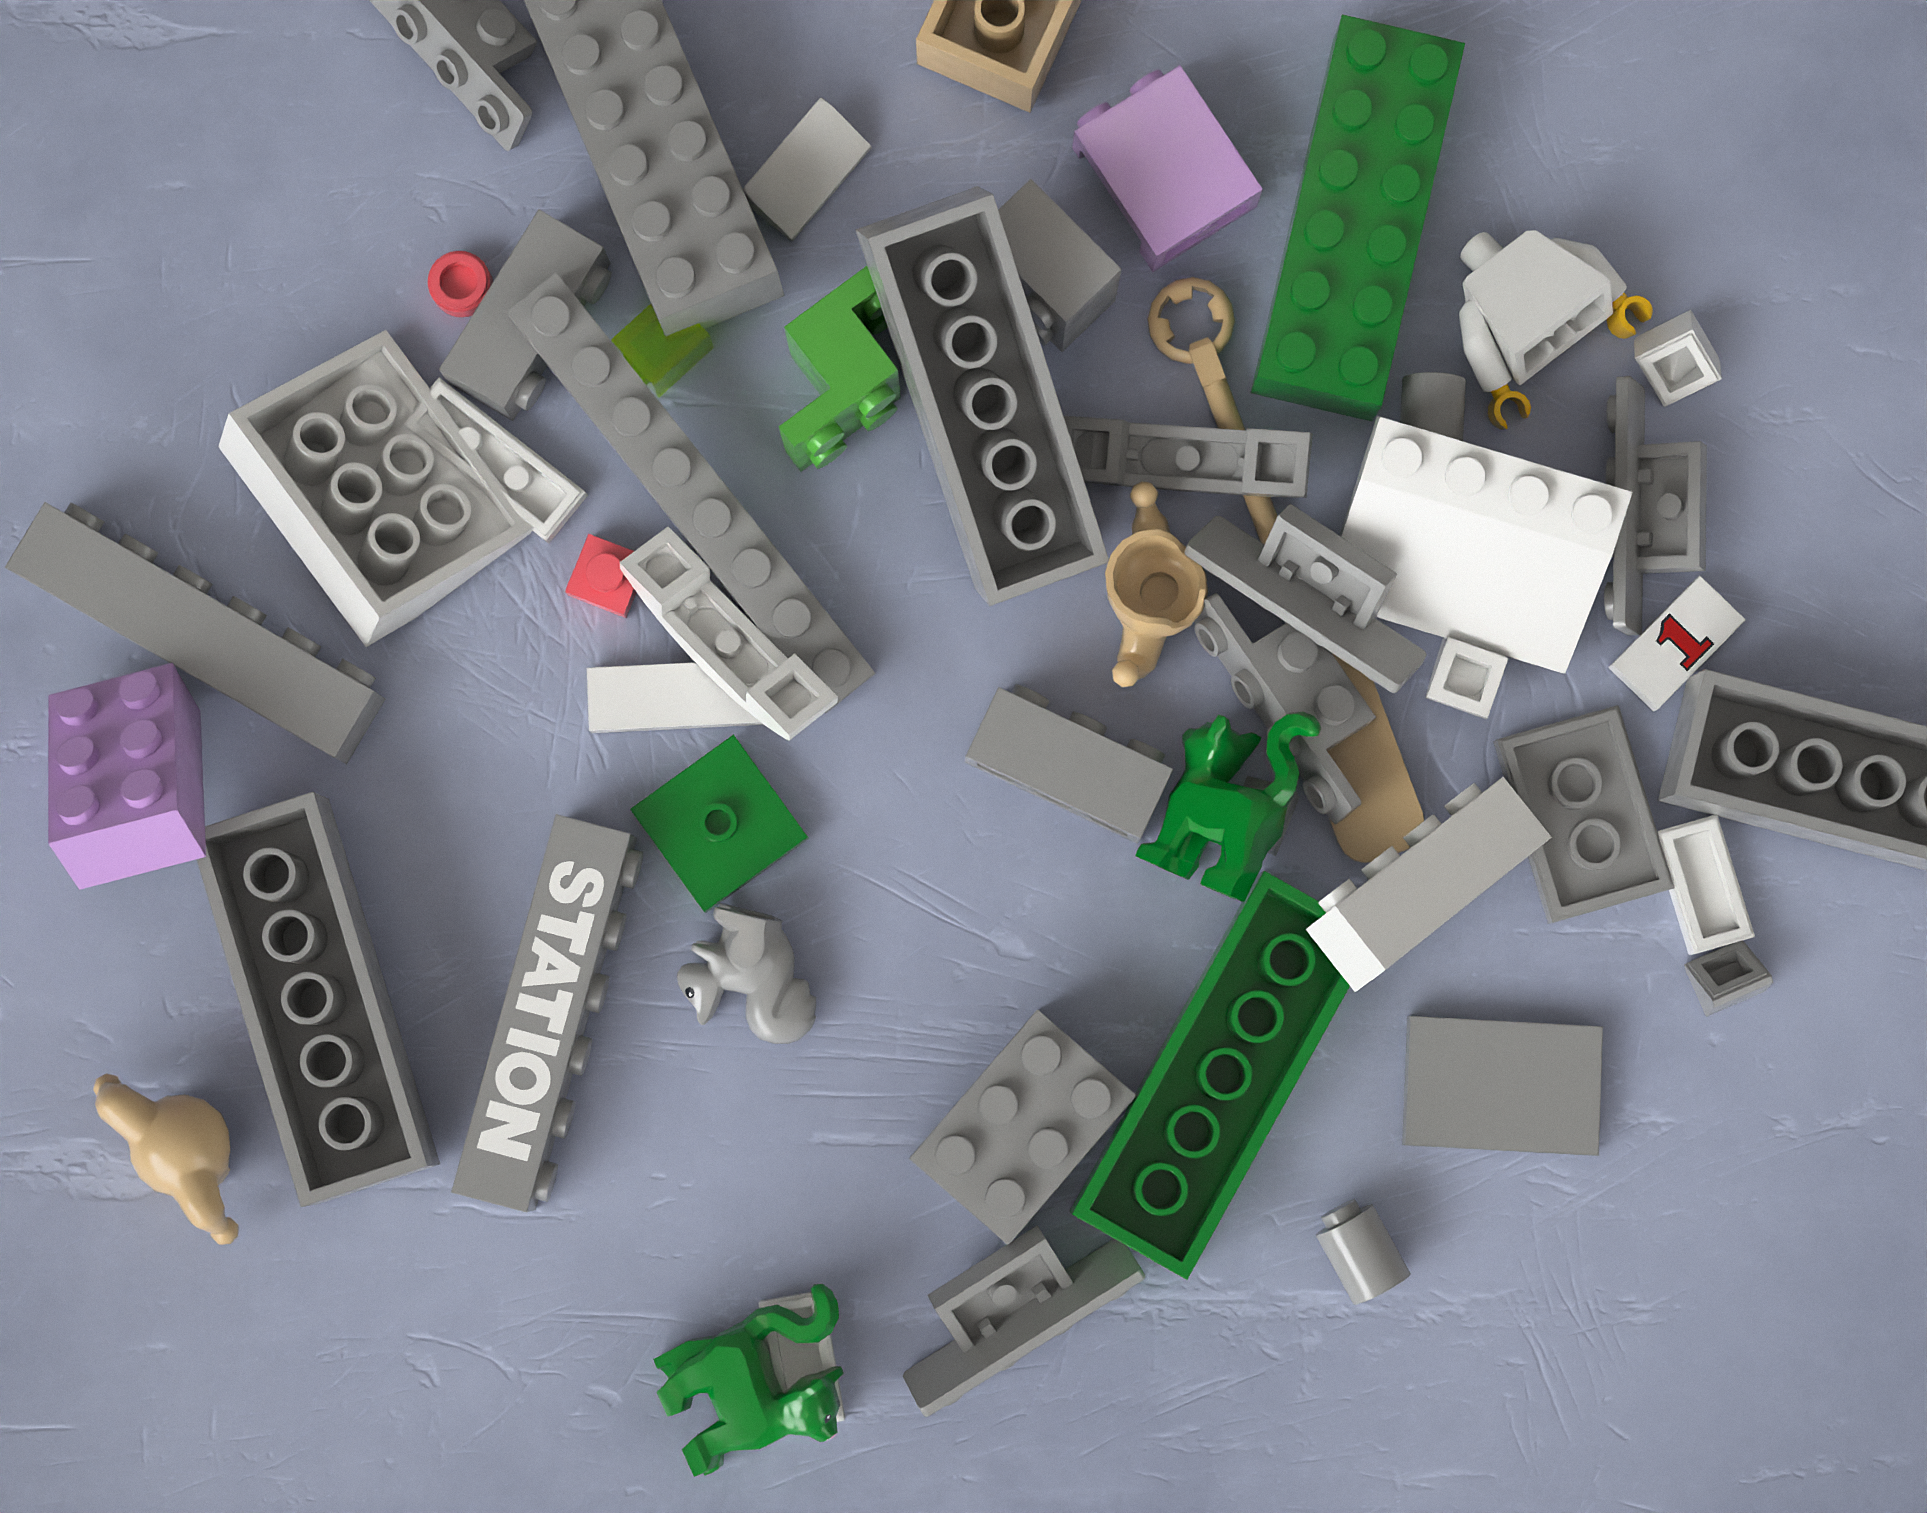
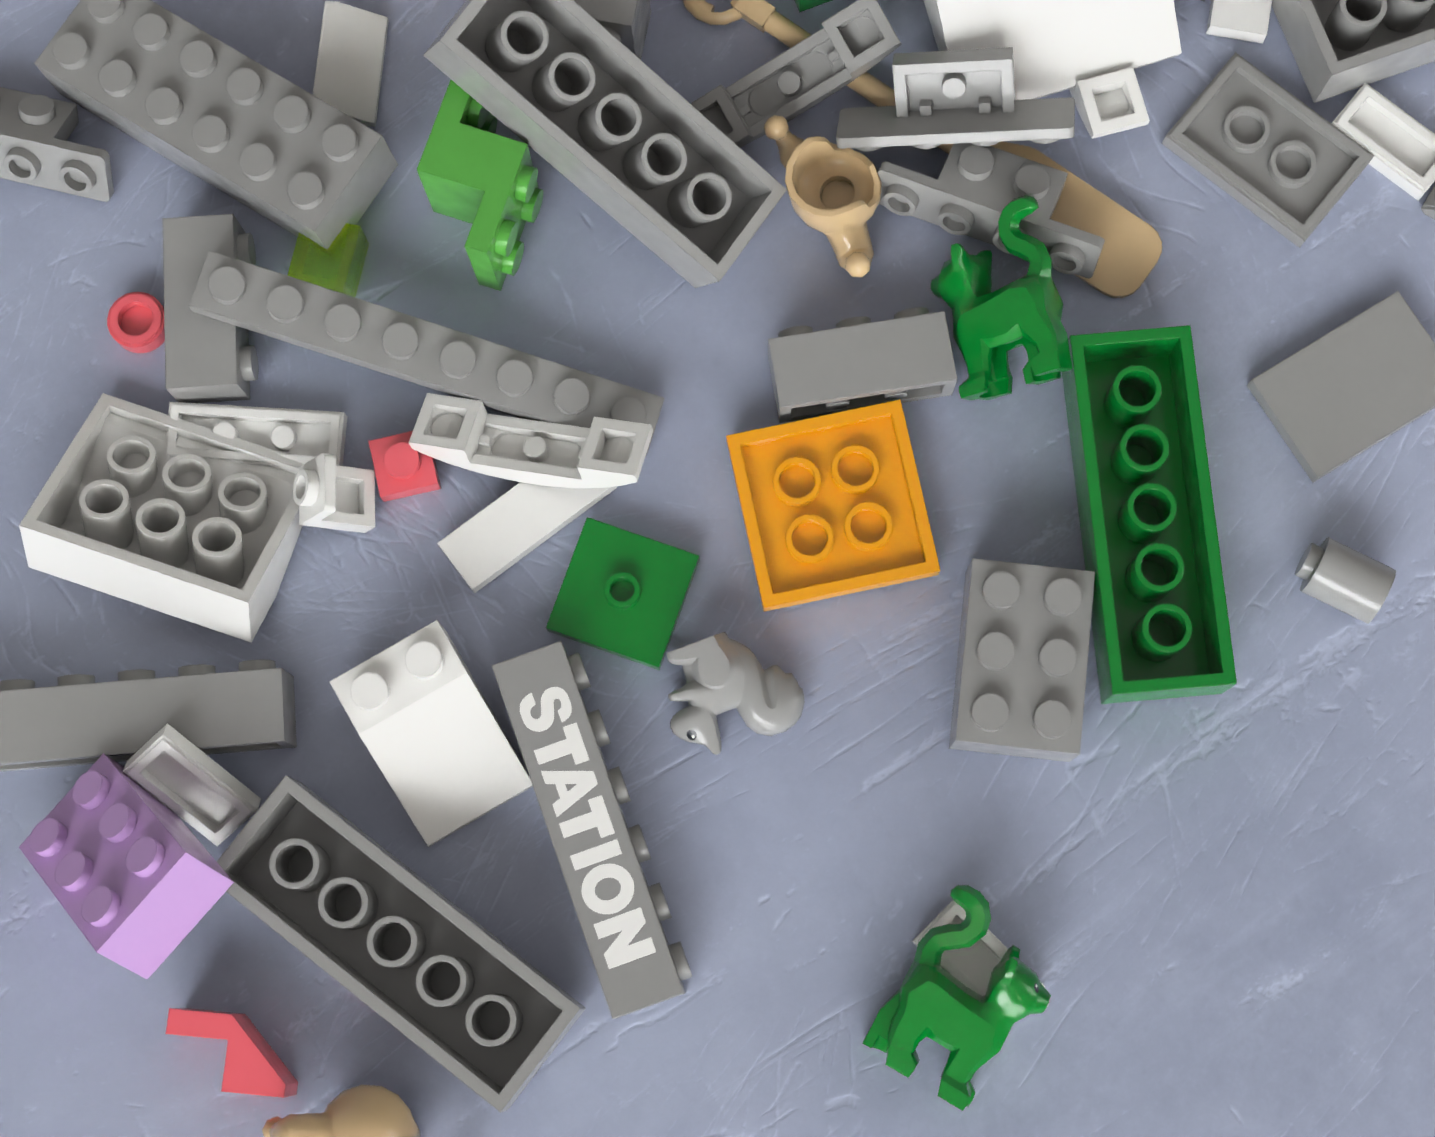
camera: 30 degrees left, 5 degrees down
(126, 1014) = (249, 1061): none -> coral slope
(231, 740) = (192, 785): none -> white tile
(468, 834) = (432, 733): none -> white slope
(524, 565) = (335, 495): none -> white bracket
(956, 872) = (832, 505): none -> light orange plate
(1010, 1309) = (1113, 807): light grey bracket -> none
(1428, 883) = (1199, 263): white brick -> none

